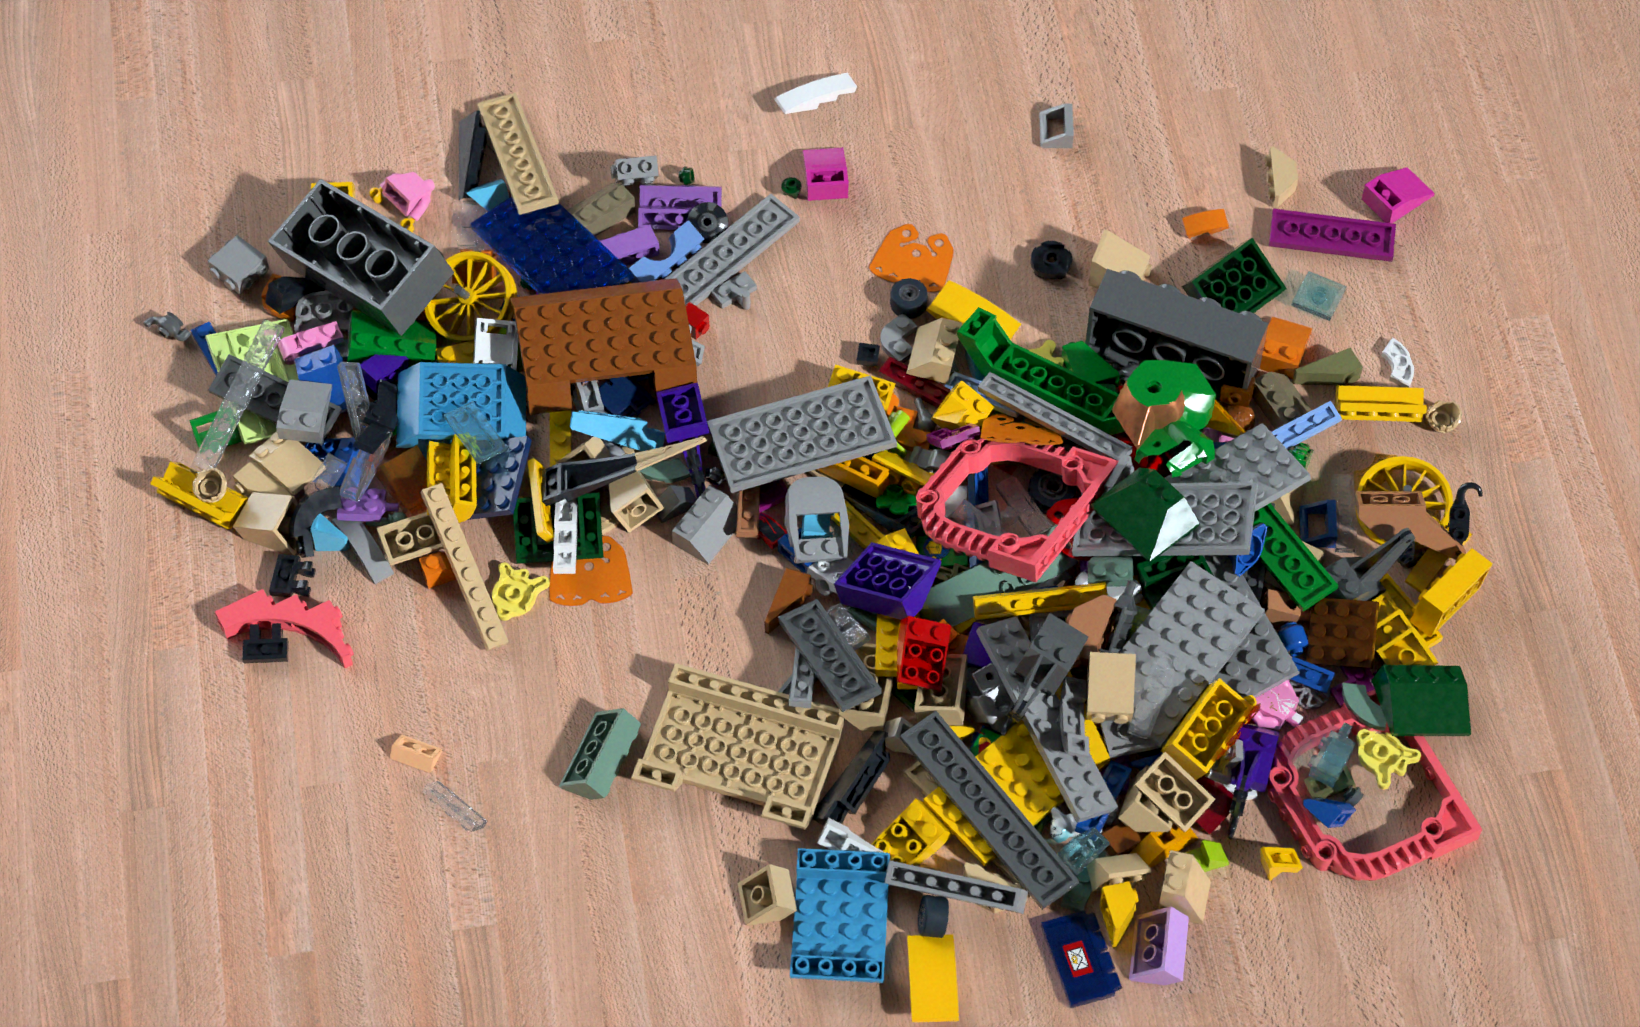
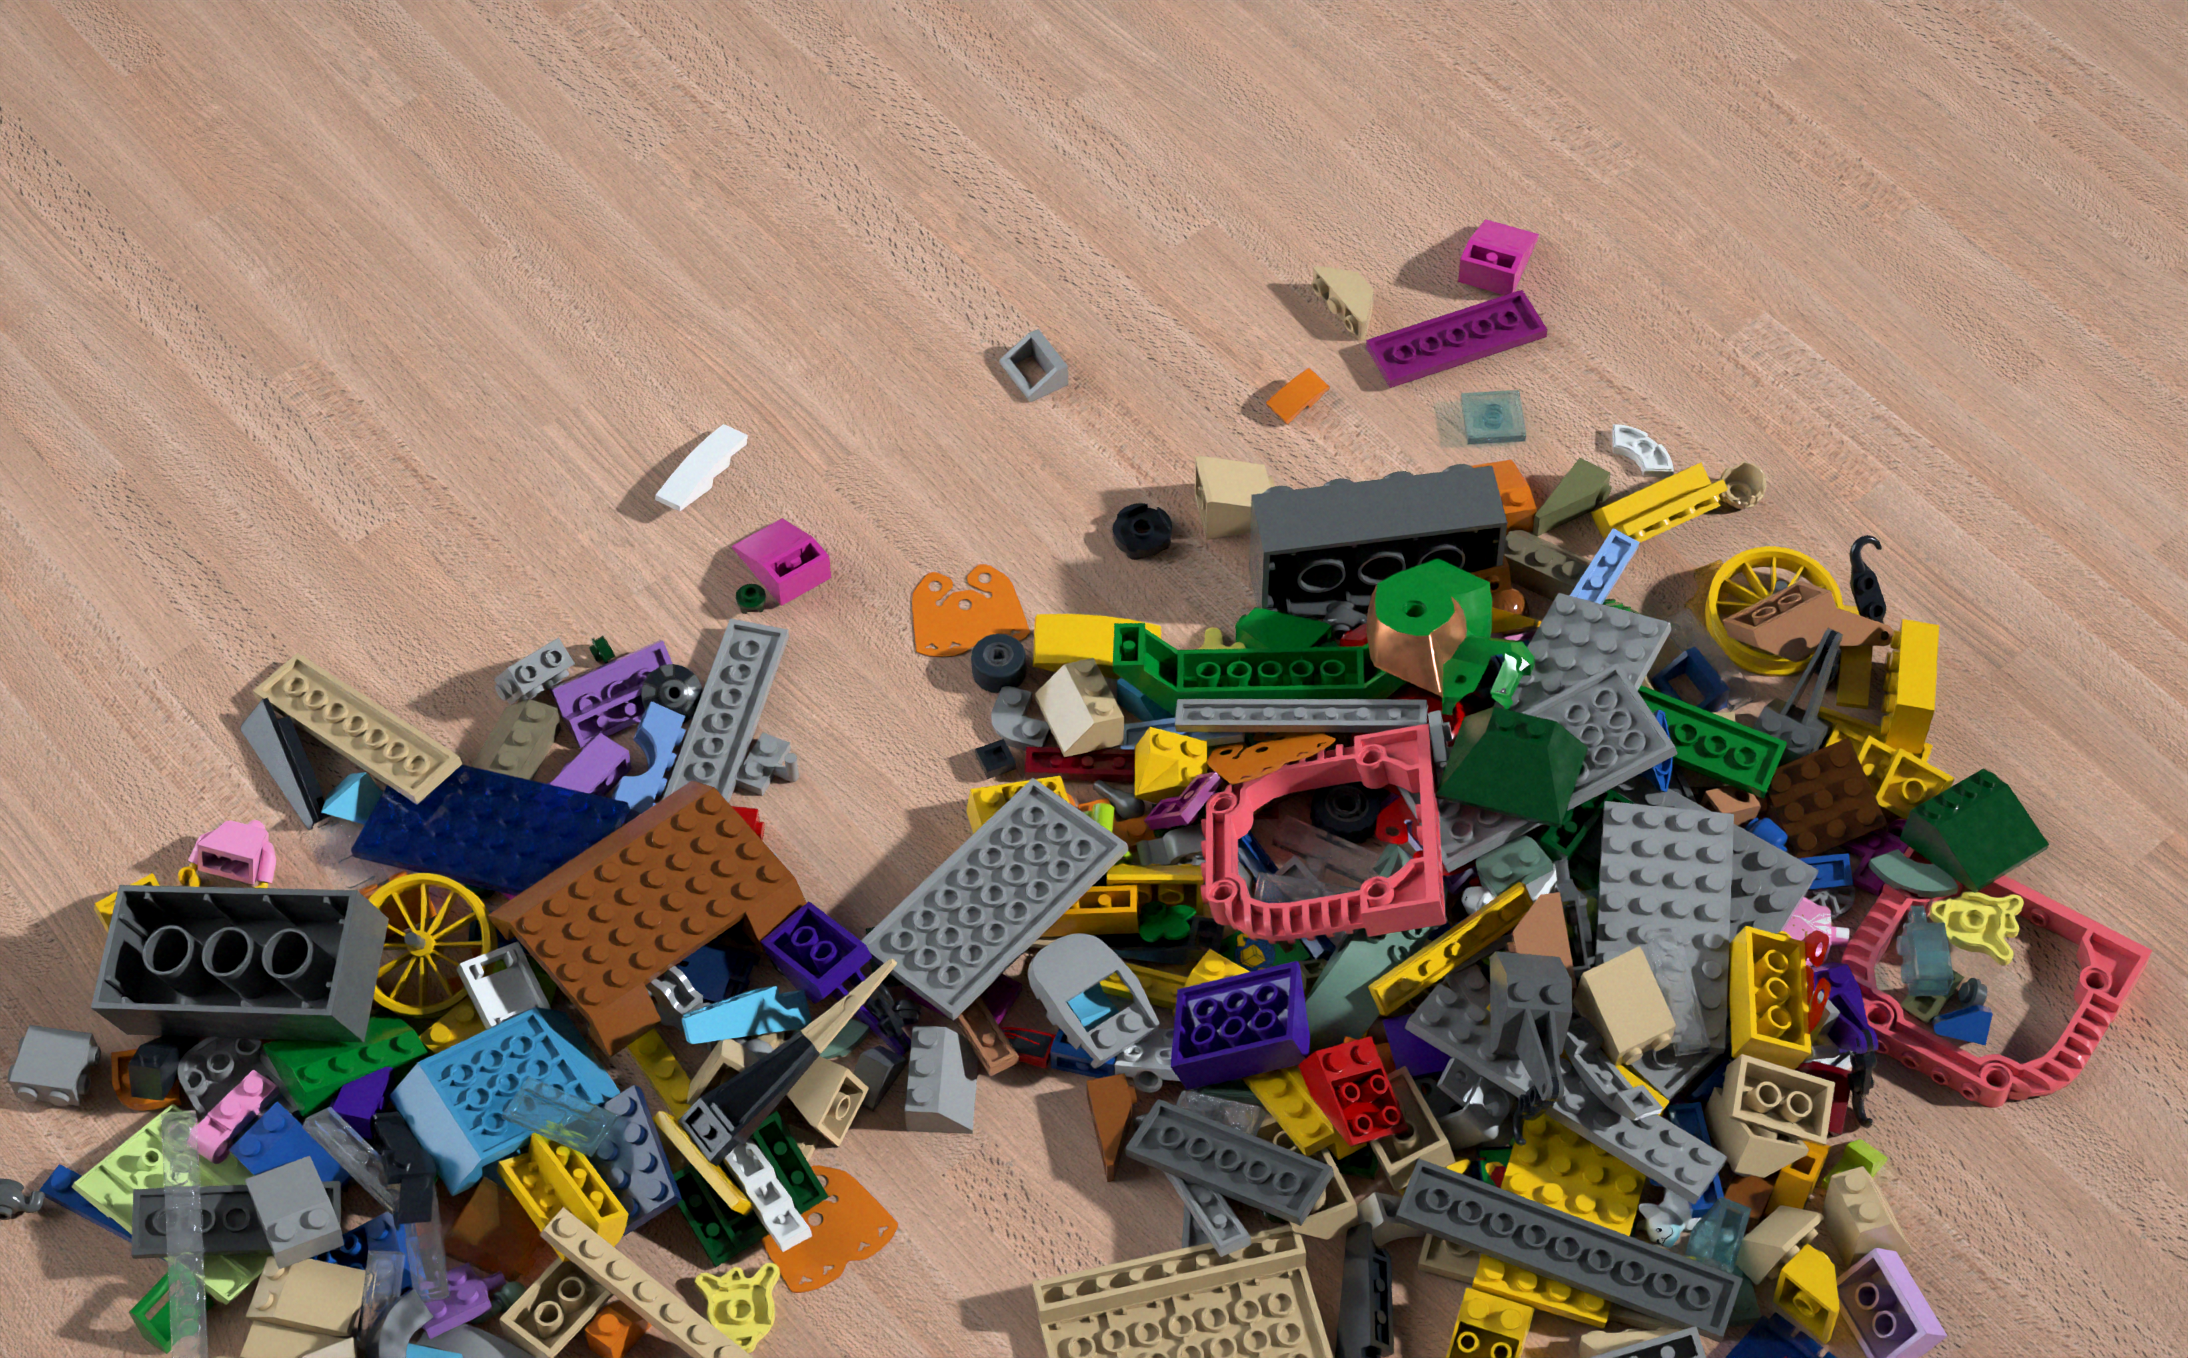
camera: 30 degrees left, 5 degrees down
(1238, 280) = (1386, 438): dark green slope -> none
(1279, 860) = (1947, 1122): yellow slope -> none

